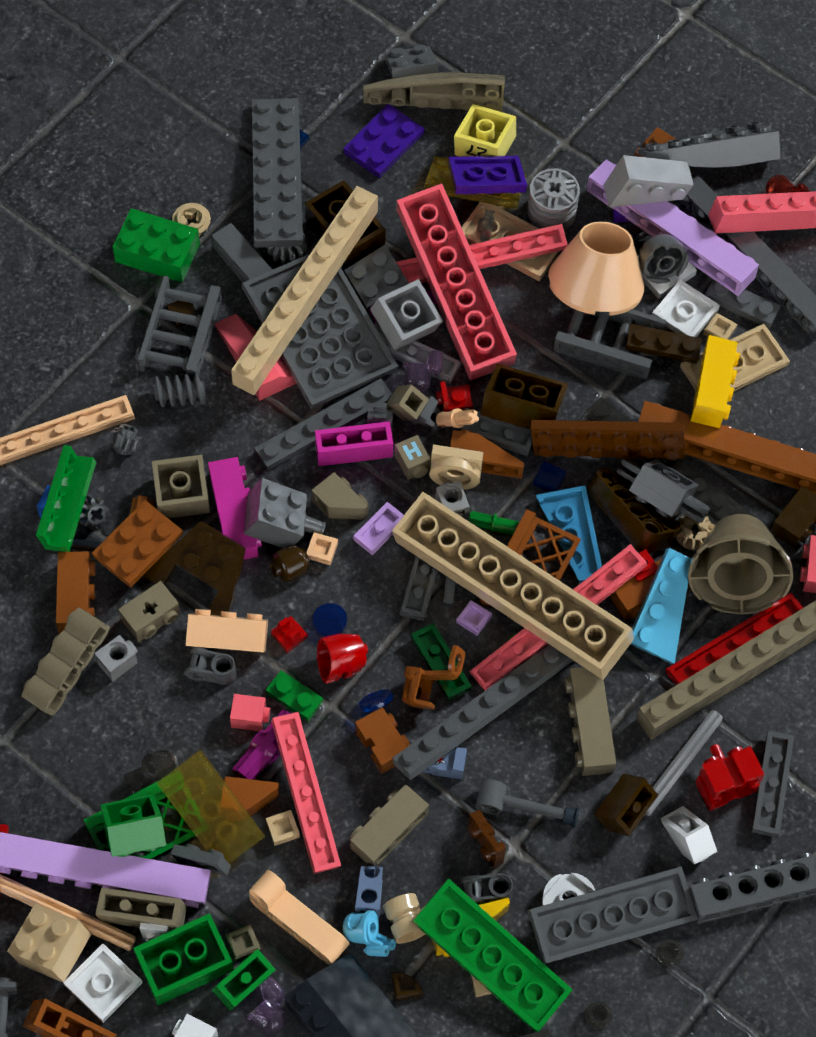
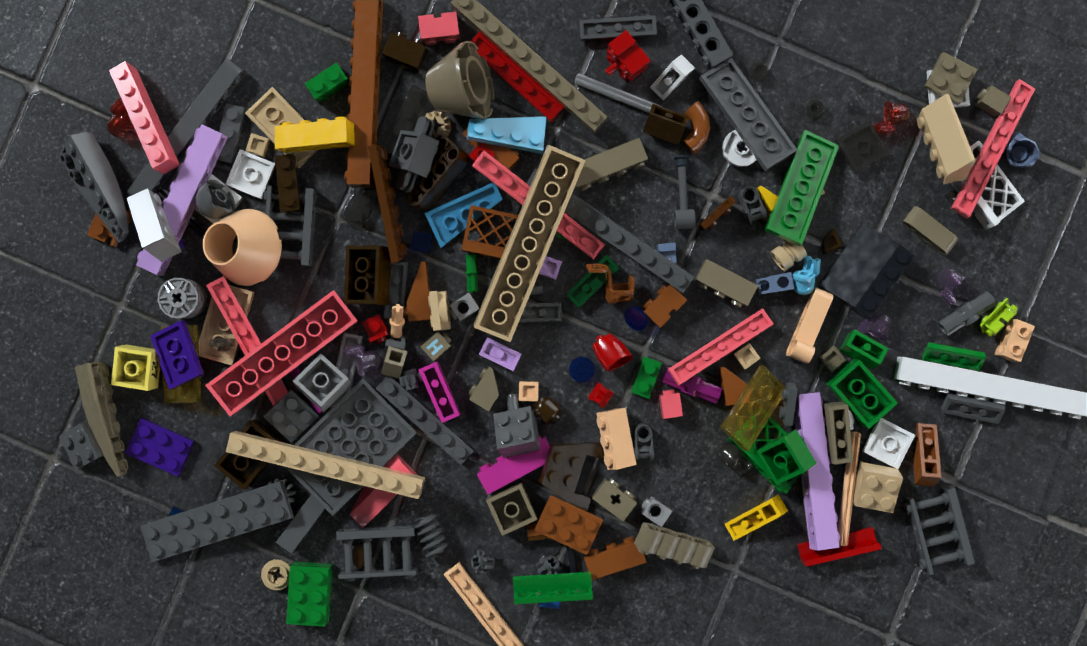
camera: 100 degrees left, 25 degrees up
(64, 781) = (756, 517): none -> yellow slope
(611, 850) = (699, 128): none -> dark orange cylinder
(779, 418) = (327, 83): none -> green brick

